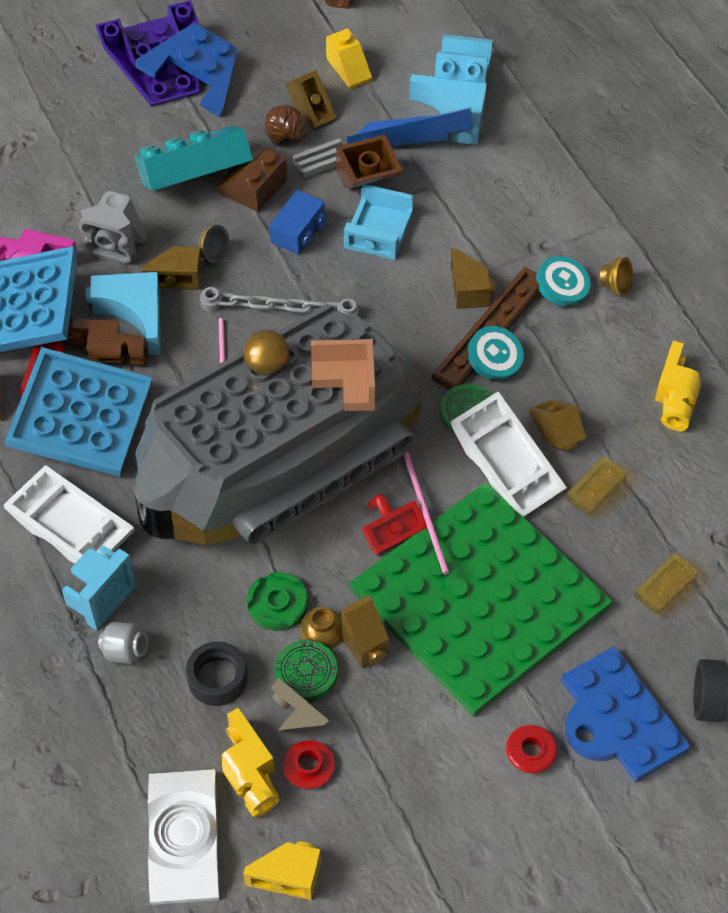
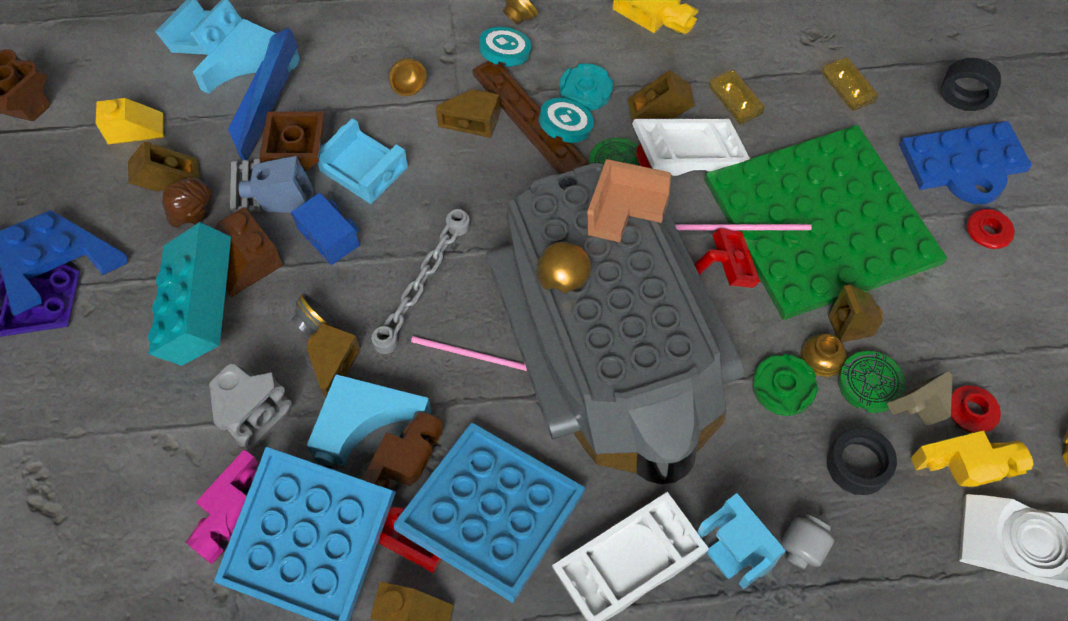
camera: 70 degrees left, 5 degrees up
(322, 166) = (278, 185): none -> sand blue torso
(486, 219) = (407, 77): none -> pearl gold piece
(550, 361) = (587, 85): none -> teal tile

